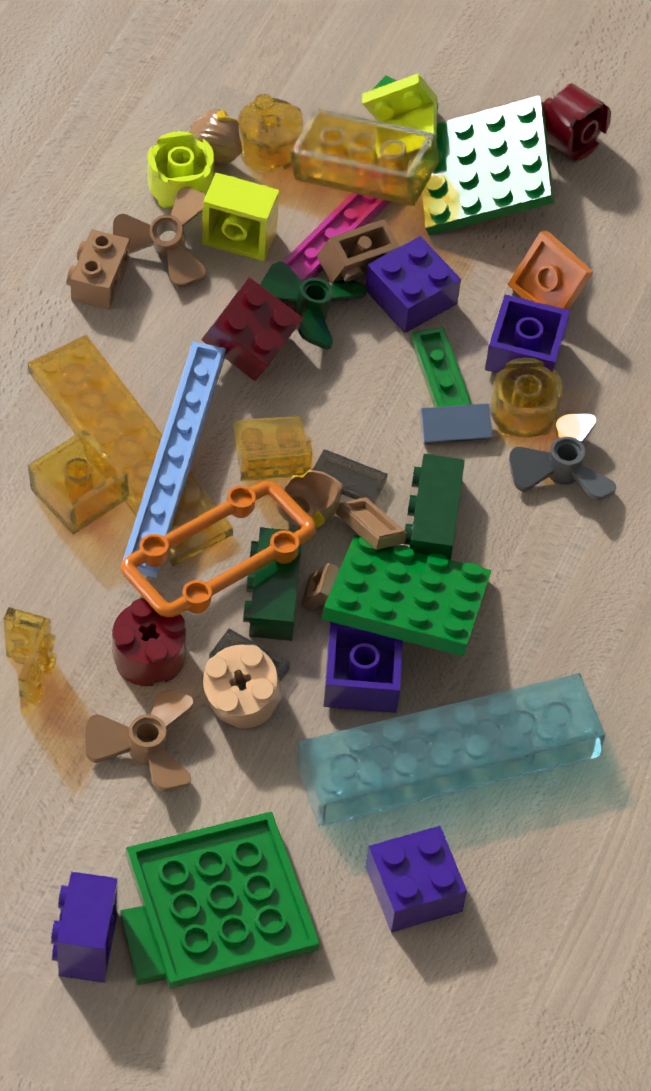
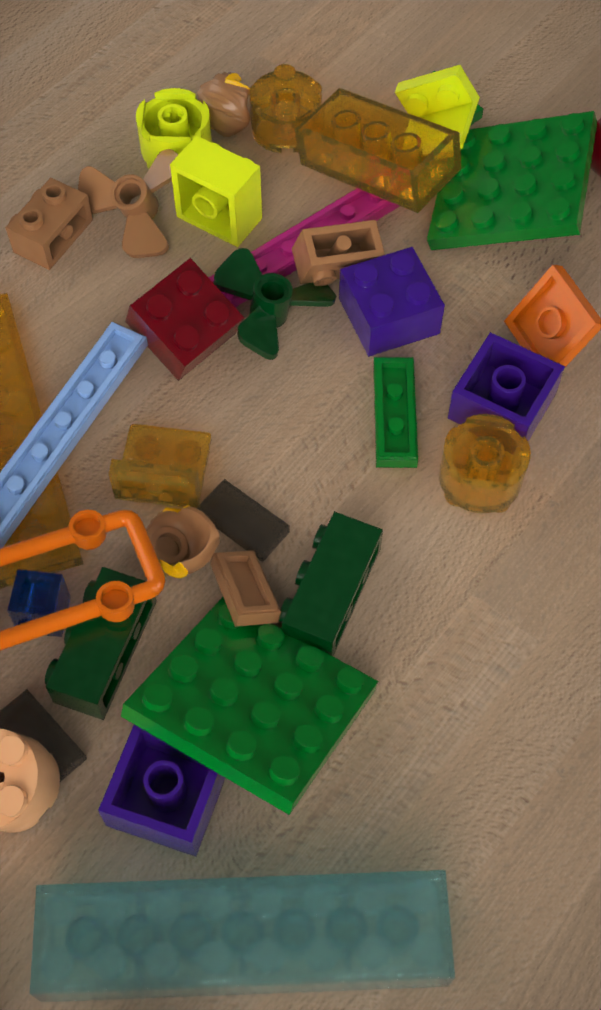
camera: 20 degrees right, 5 degrees up
(217, 557) = (36, 596): none -> clear blue brick
(319, 586) = (153, 655): medium nougat tile -> none
(456, 423) = (391, 478): sand blue tile -> none
(533, 466) = (470, 553): dark grey piece -> none

